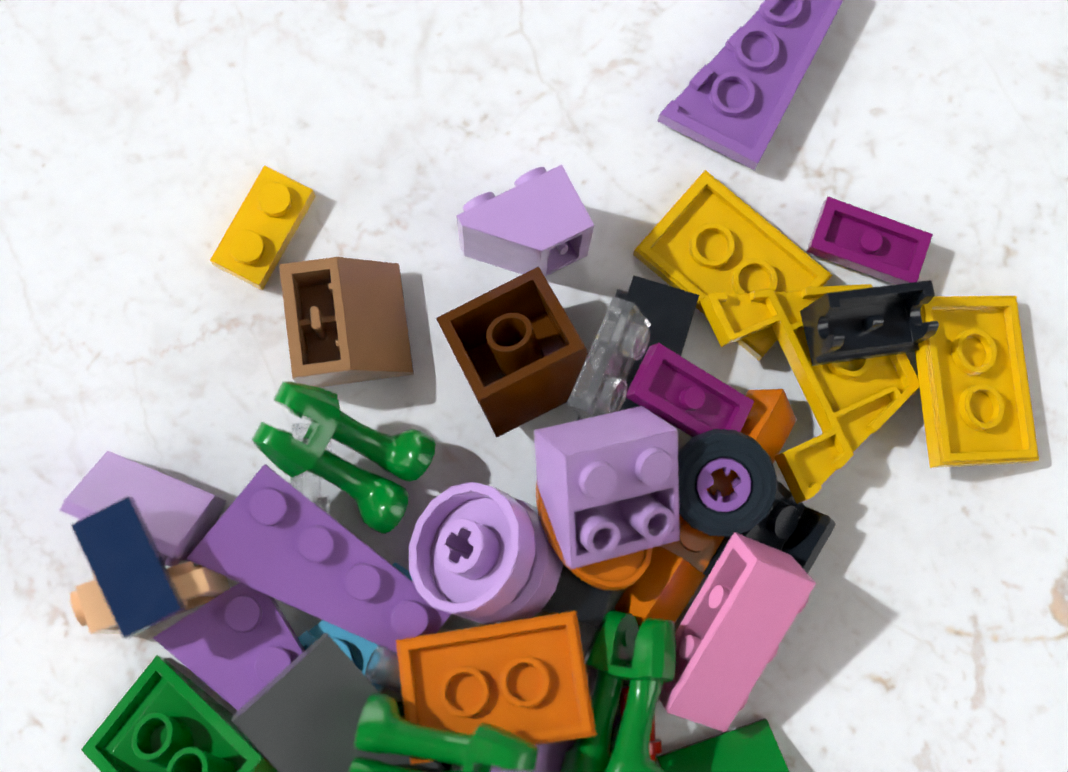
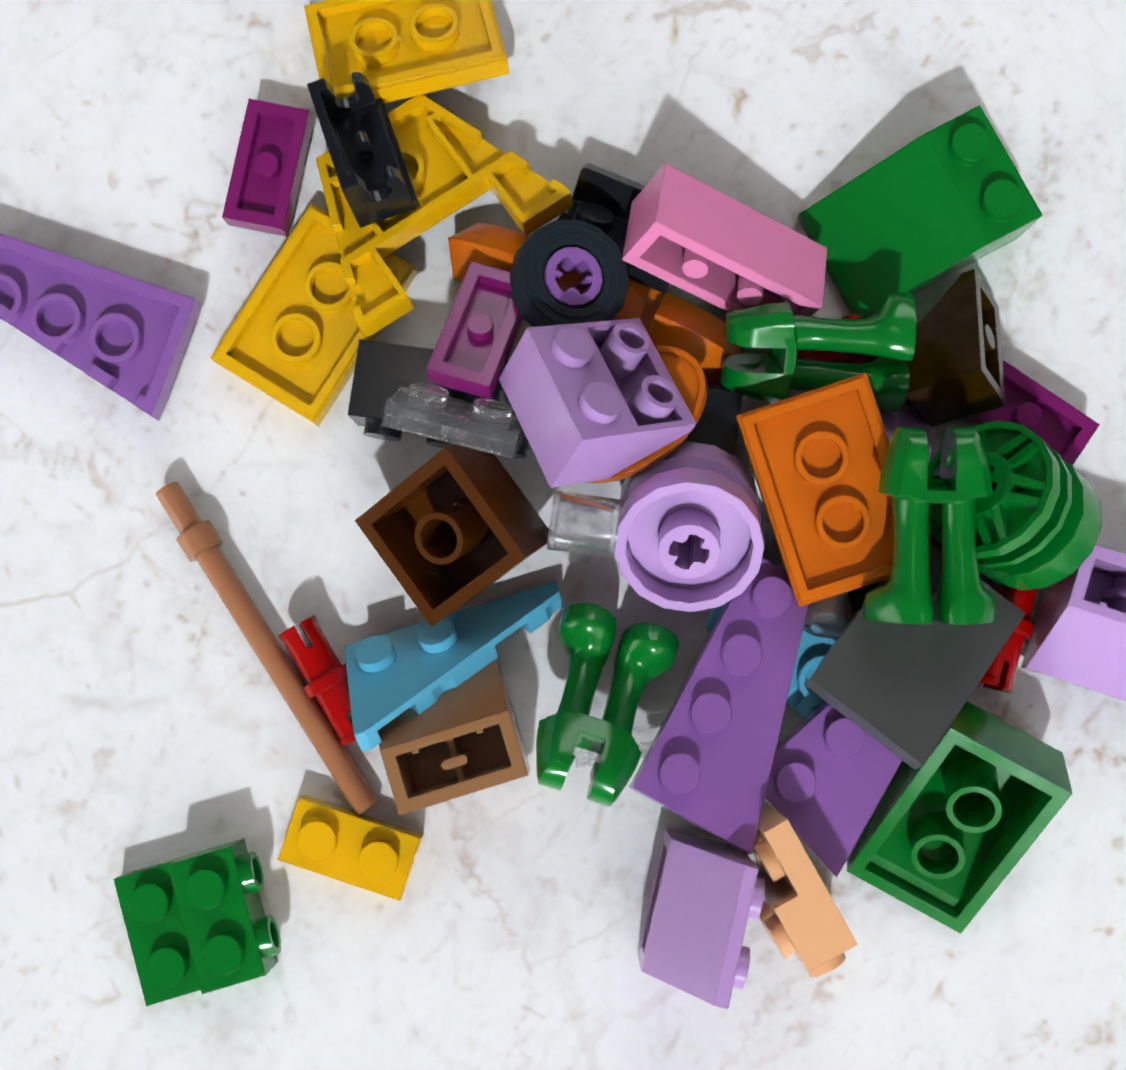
camera: 90 degrees left, 5 degrees up
(128, 567) = (780, 915): dark blue tile -> none
(226, 95) = (198, 922): none -> green plate
(406, 228) = (323, 673): none -> red pin
(406, 302) = (423, 661): none -> medium azure wing
(501, 458) = (583, 526): none -> clear piece
(528, 225) = (309, 536): lavender slope -> none
(544, 141) = (202, 543): none -> nougat bar

